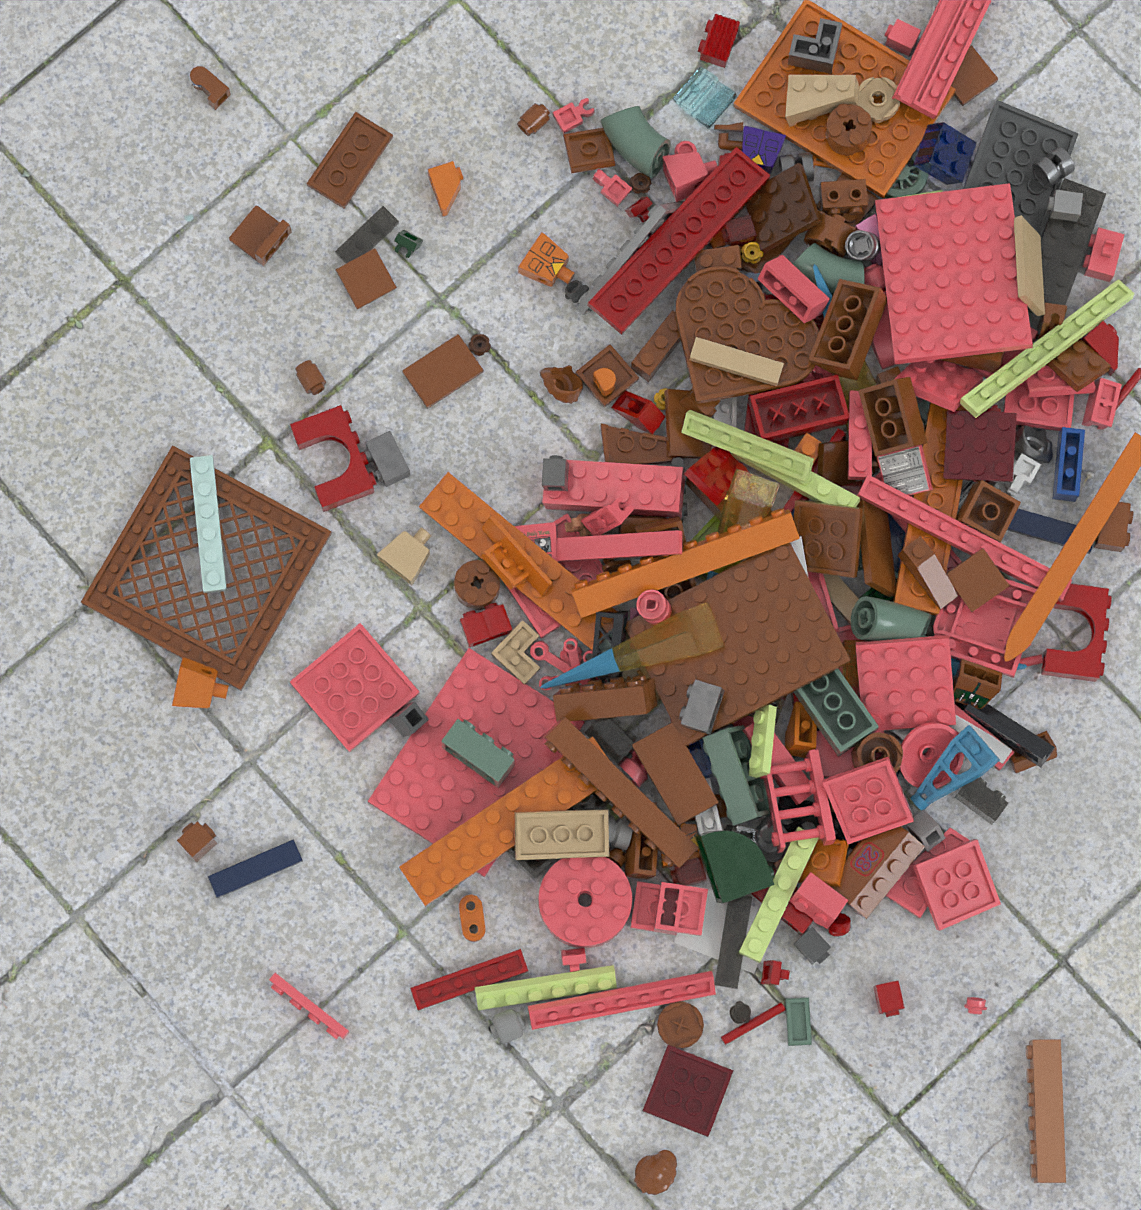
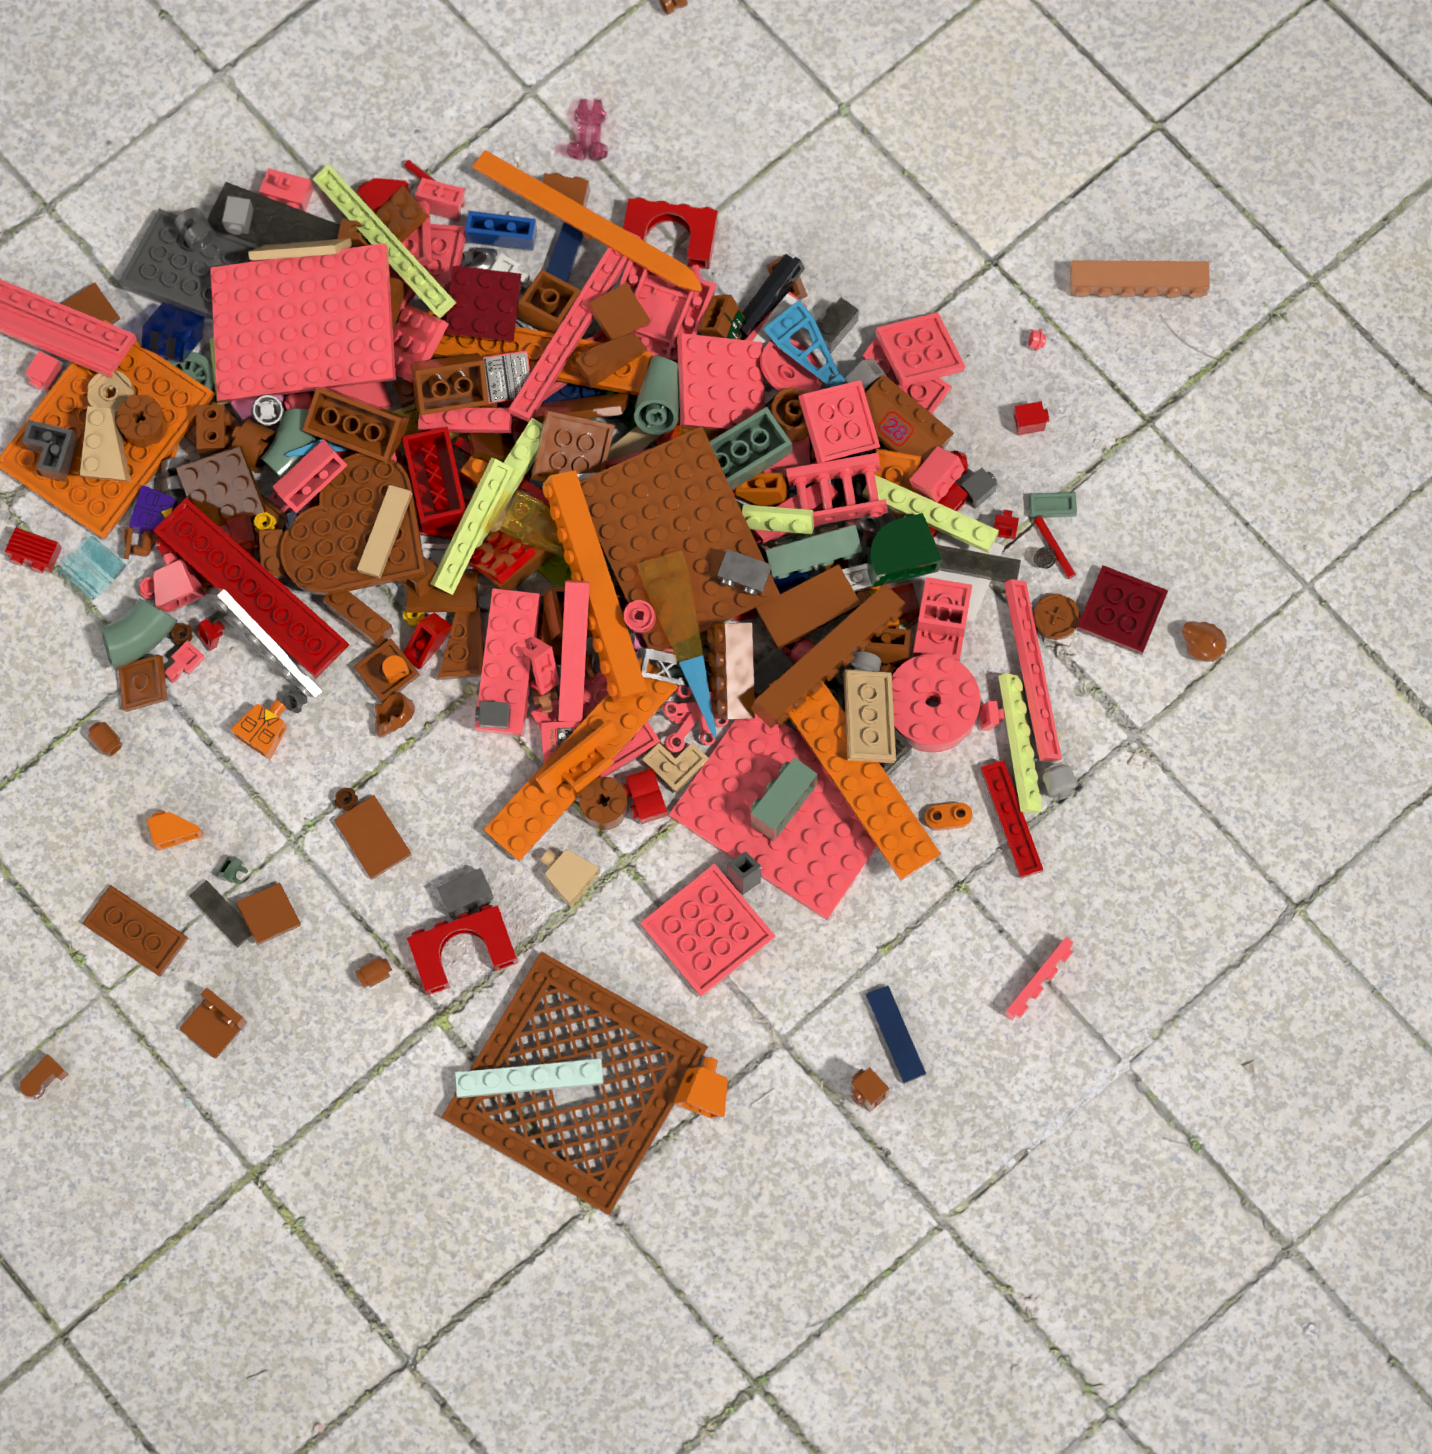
camera: 80 degrees left, 5 degrees down
(570, 116) = (103, 701): coral plate -> none

